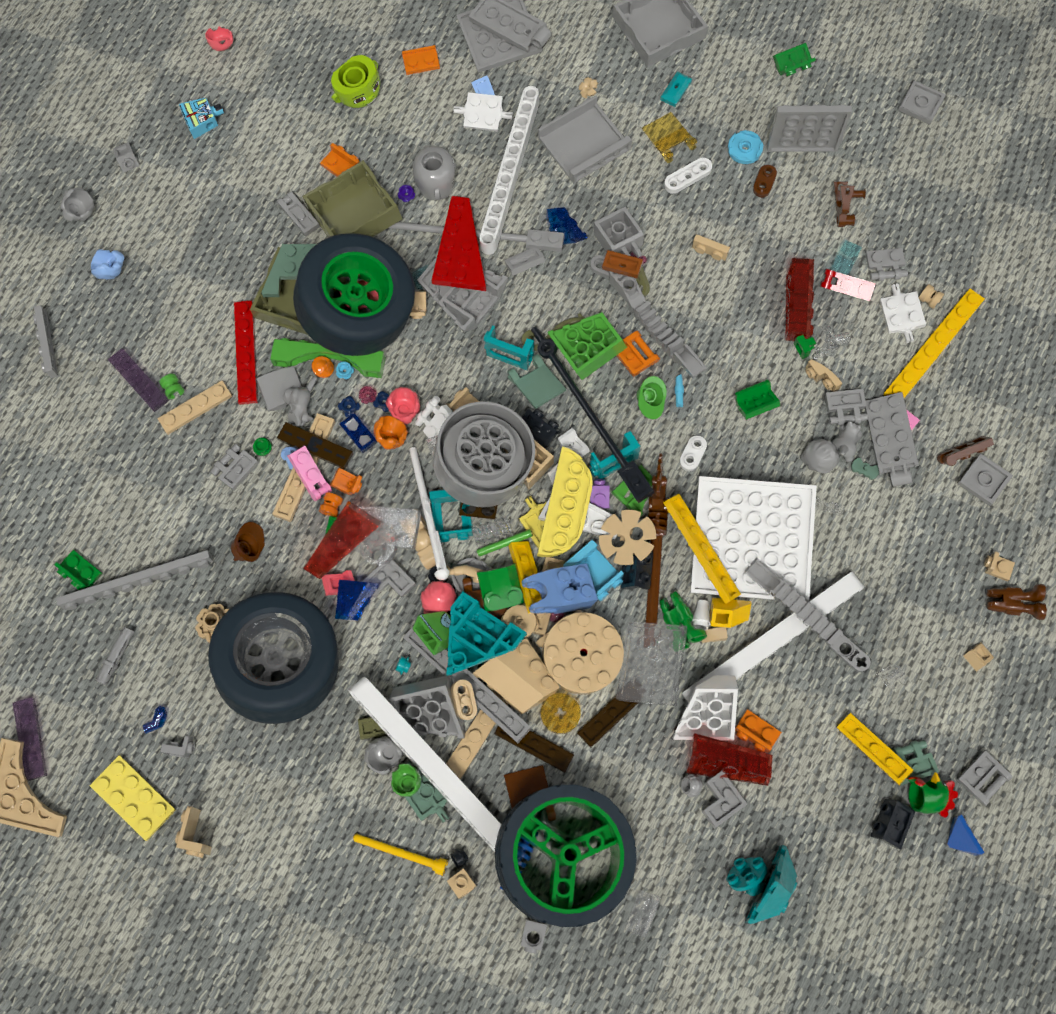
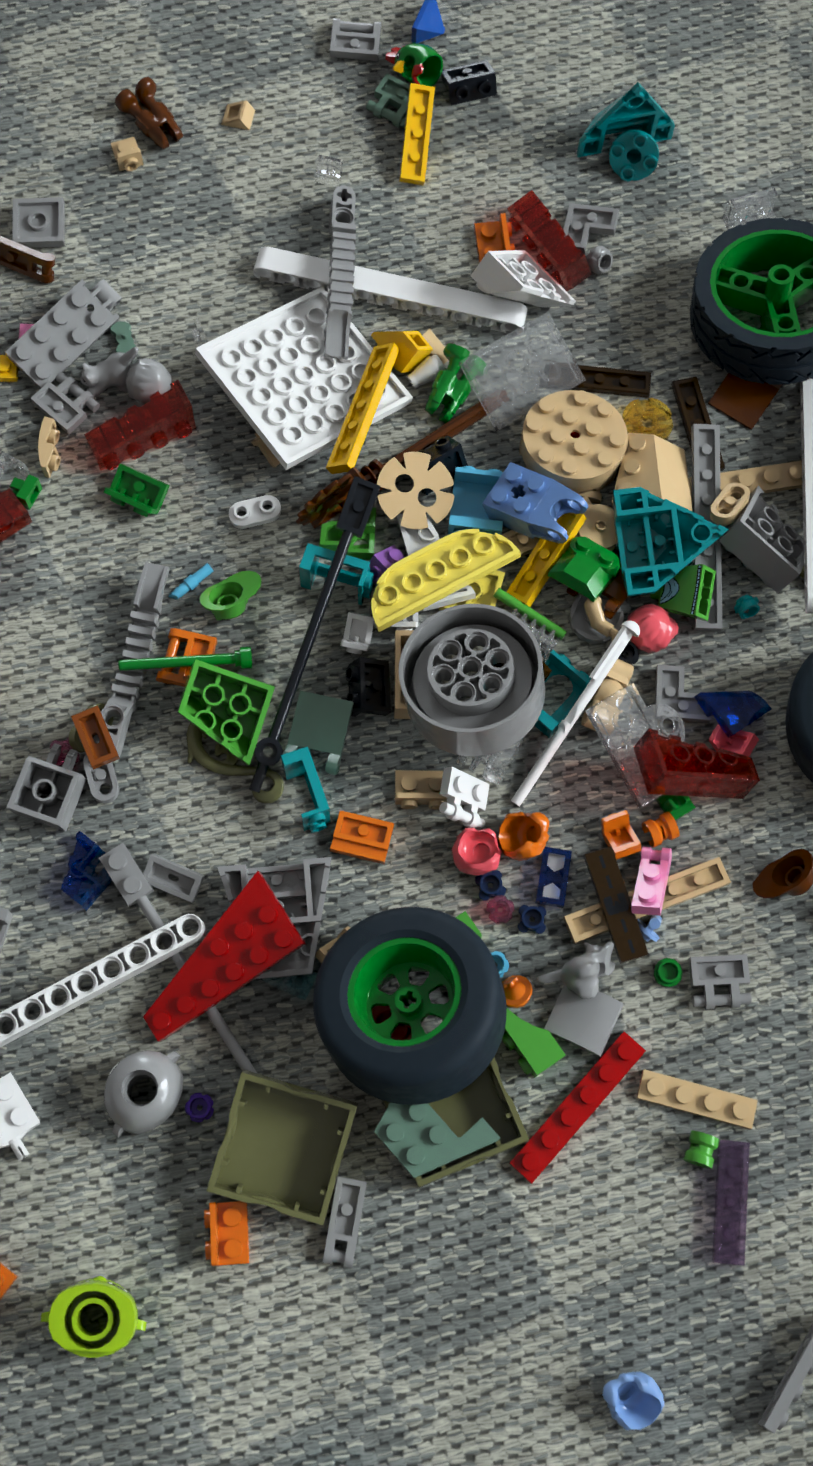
camera: 140 degrees left, 0 degrees up
(464, 361) = (362, 837): none -> orange plate
(610, 376) = (240, 658): none -> green piece
(793, 429) = (142, 428): none -> clear red wedge

